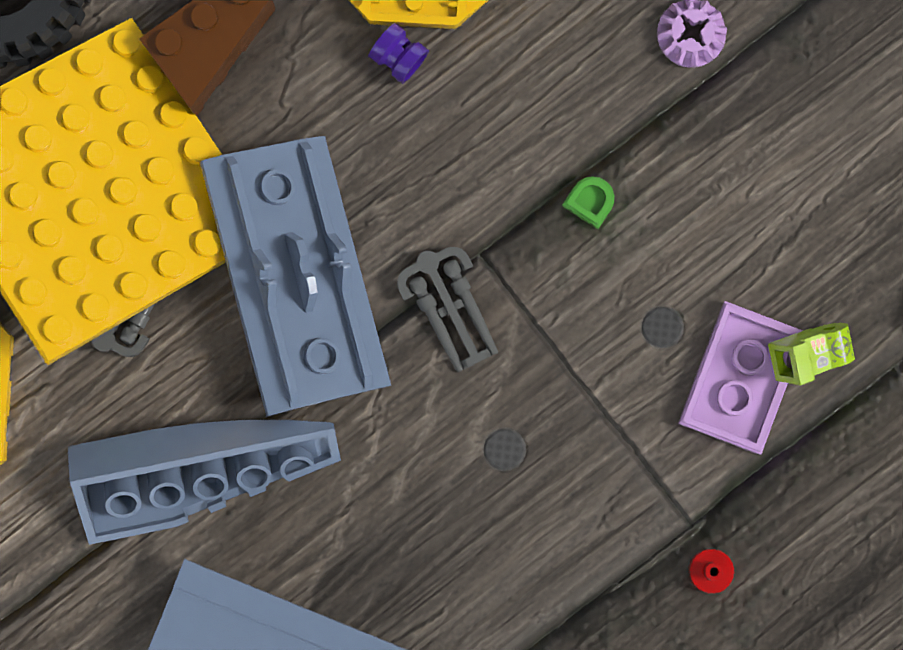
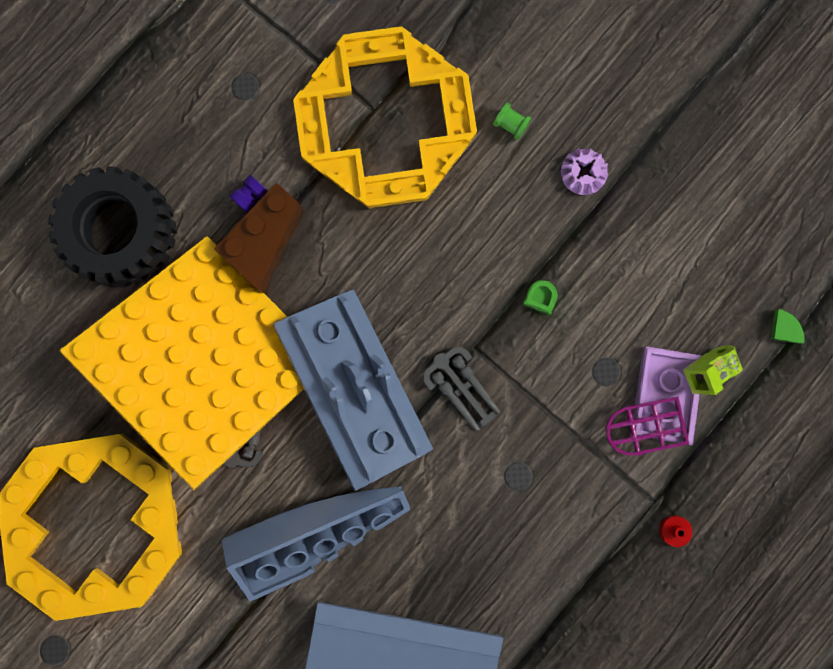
camera: 20 degrees left, 0 degrees up
(398, 53) = (392, 224): dark purple wheel -> none
(714, 426) = (657, 433): none -> magenta window

